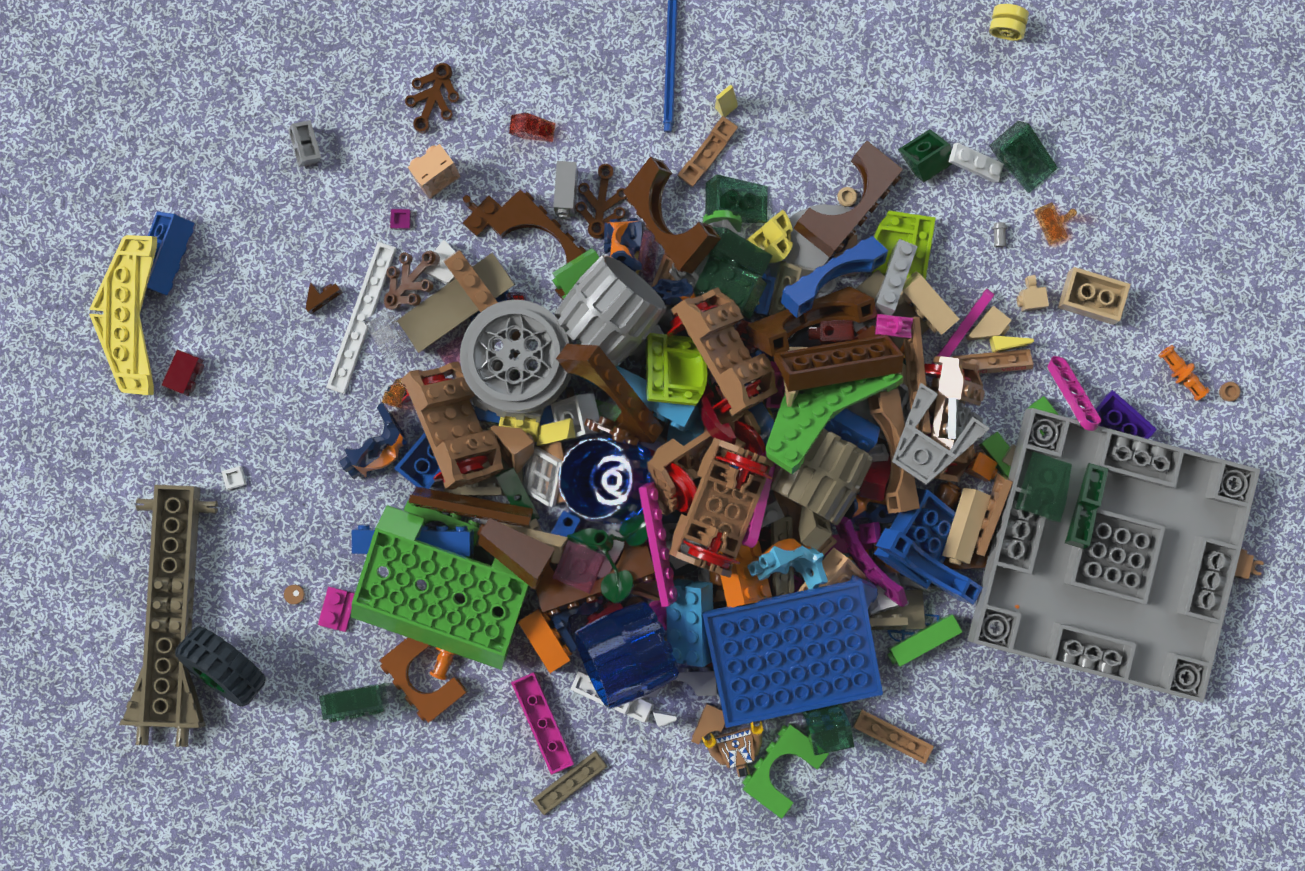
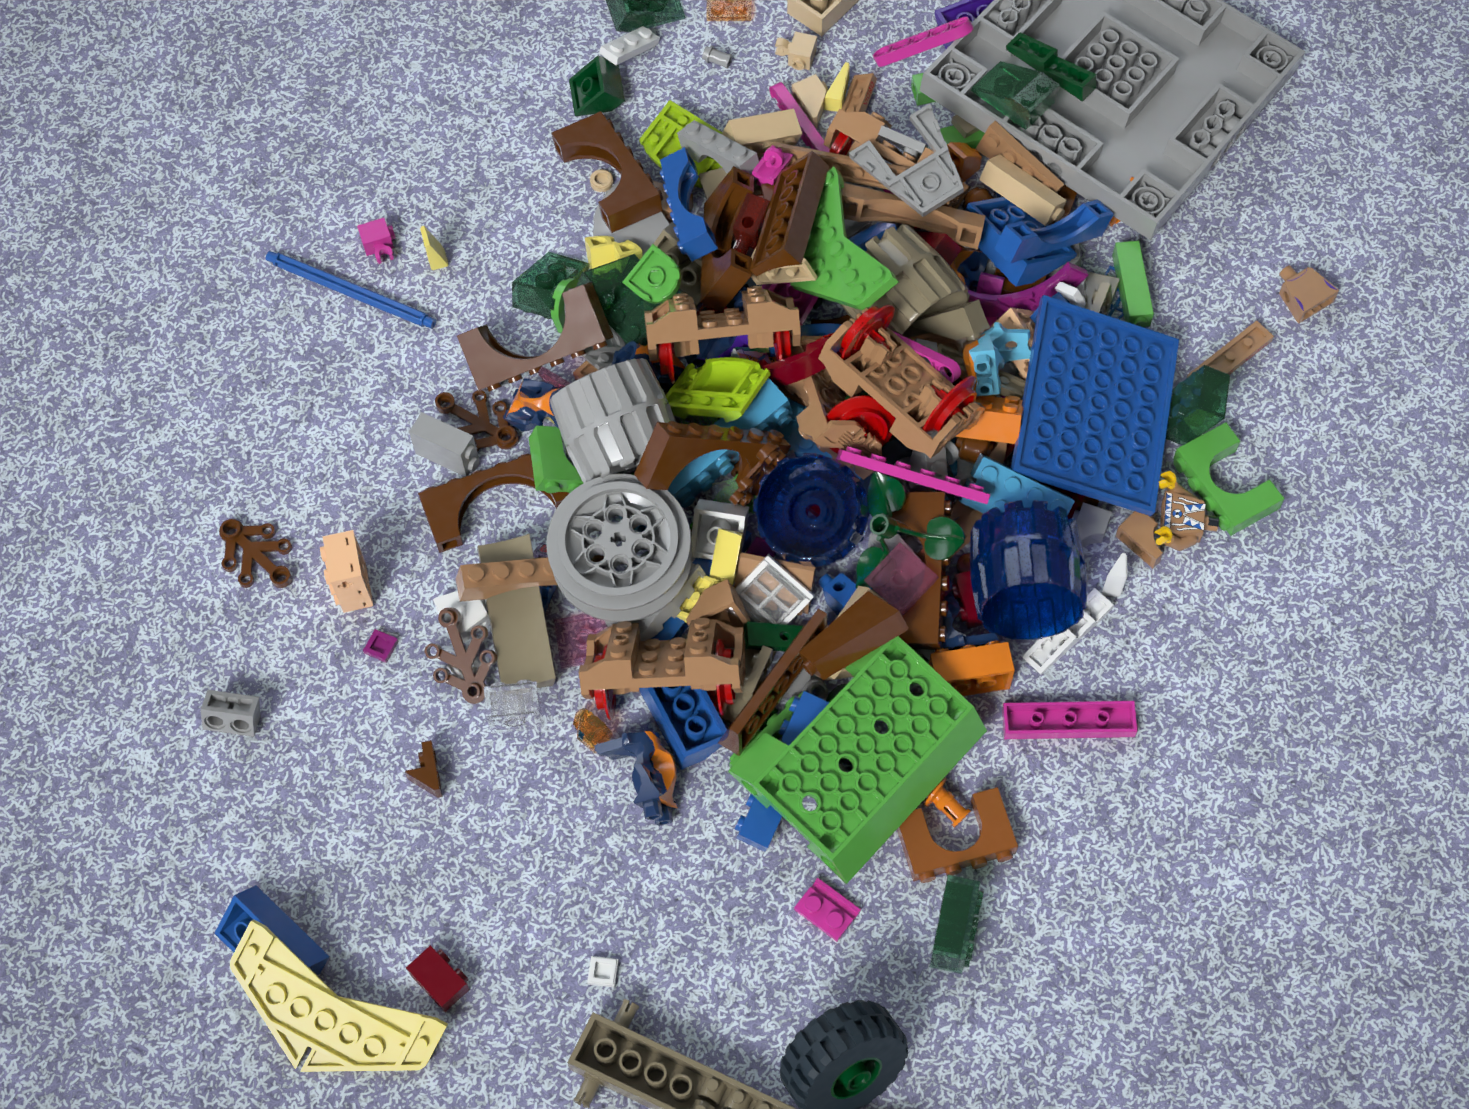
camera: 65 degrees left, 20 degrees down
(294, 594) = (785, 955): medium nougat tile -> none
(364, 308) = (478, 738): white tile -> none
(480, 214) = (424, 554): reddish brown plate -> none
(531, 127) = (351, 458): clear red slope -> none
(569, 783) = (1154, 720): dark tan tile -> none
(708, 151) = (478, 291): medium nougat slope -> none
(719, 53) = (377, 238): none -> dark pink brick
(746, 282) = (654, 276): none -> bright green tile
(880, 599) = (1071, 294): none -> white tile
(976, 775) = (1306, 292): none -> medium nougat torso

